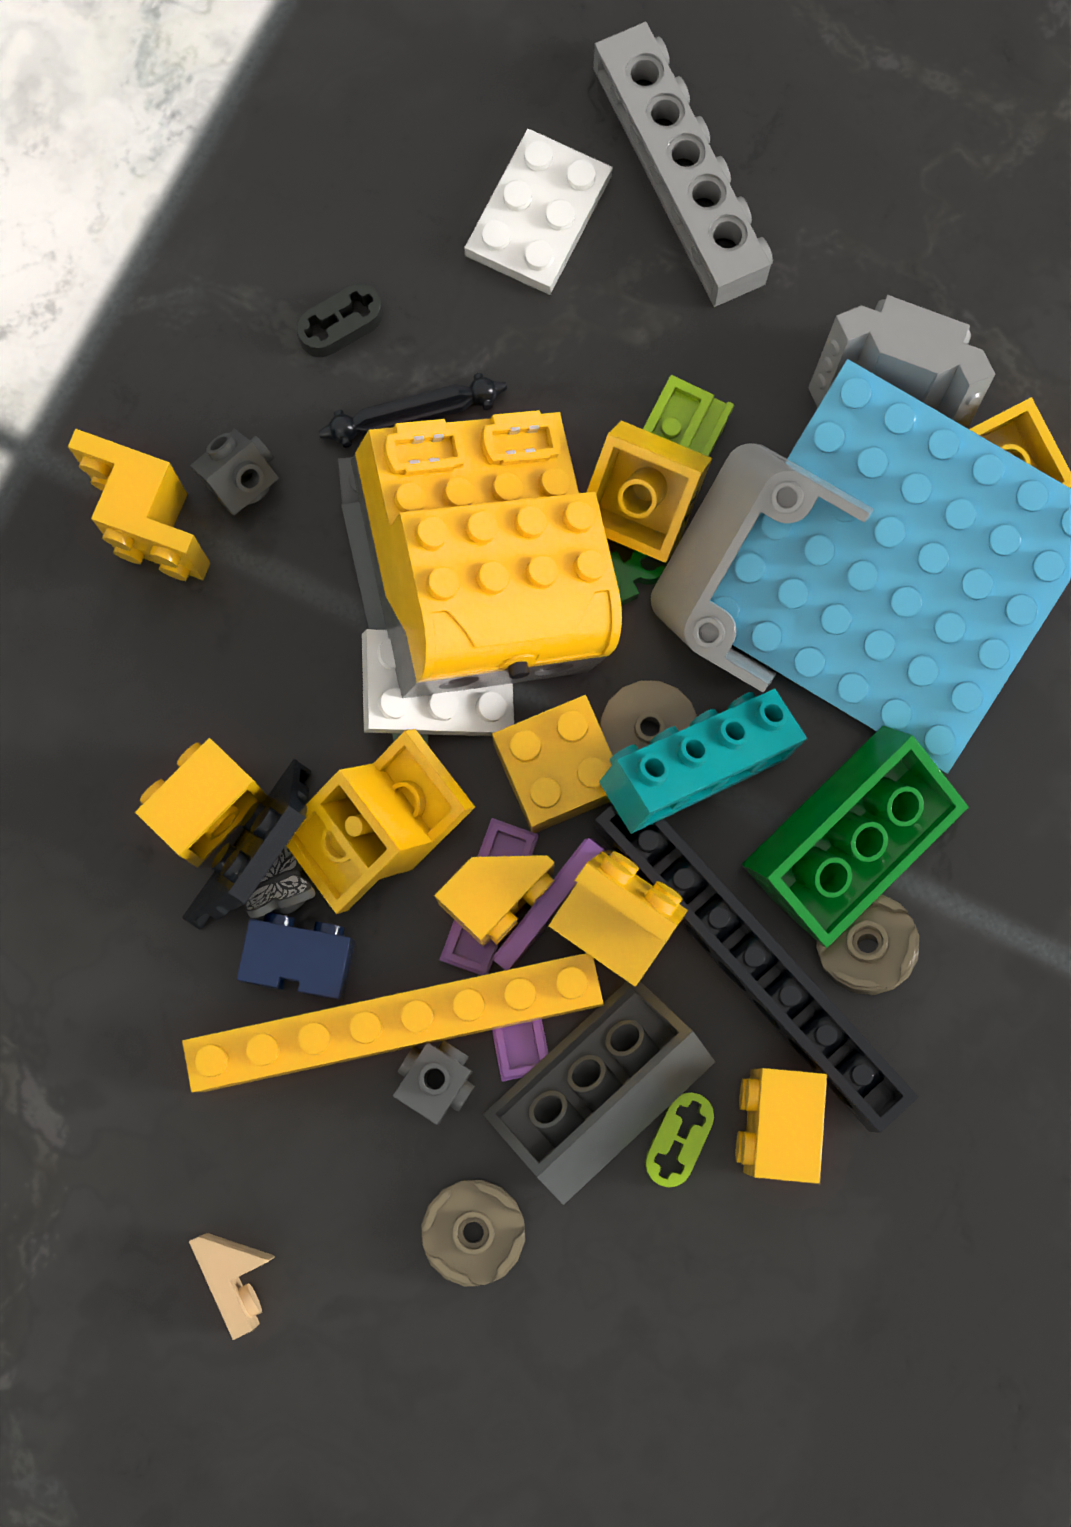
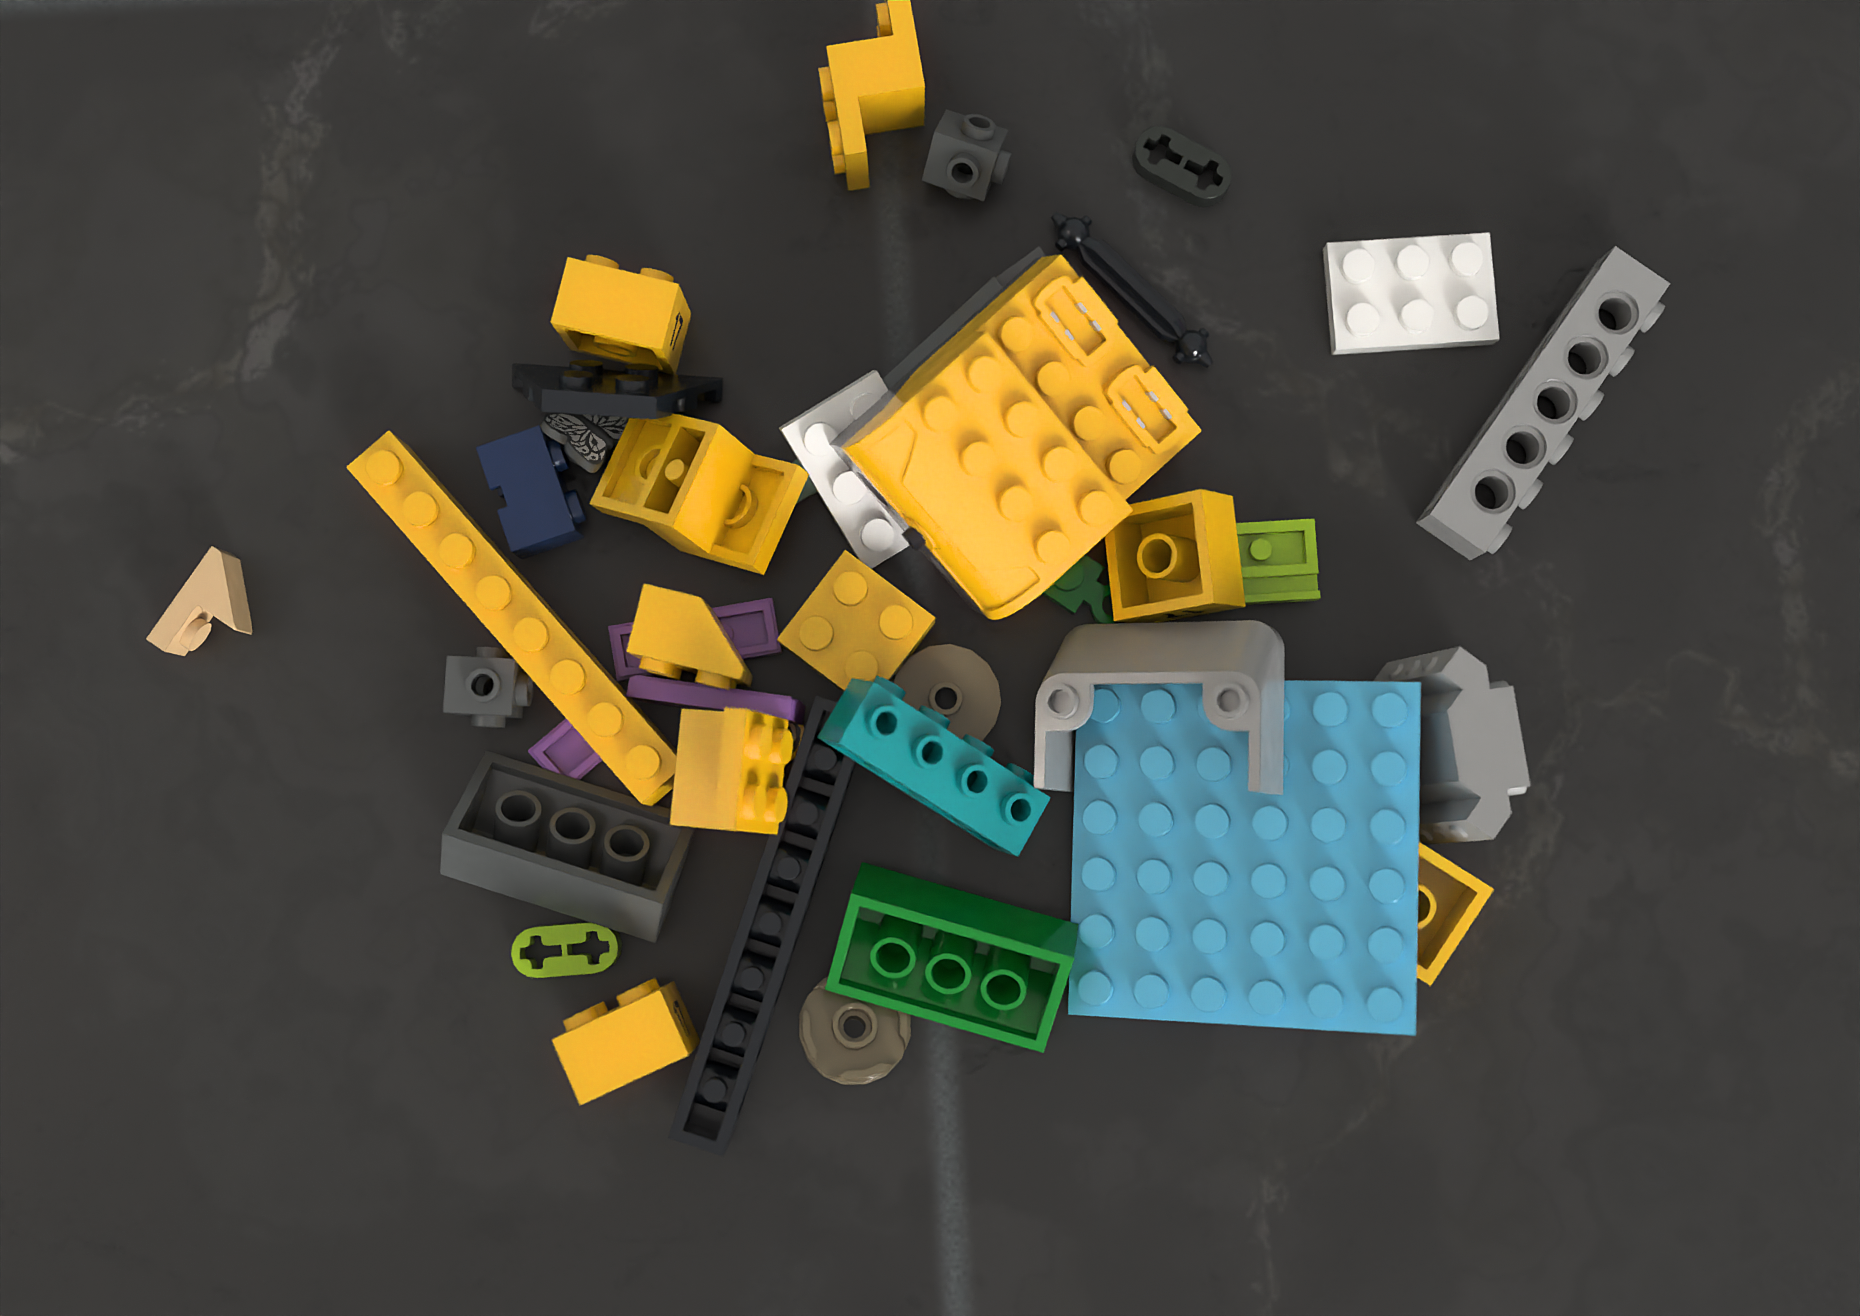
camera: 55 degrees right, 5 degrees up
(469, 1261) = (343, 798): dark tan plate -> none

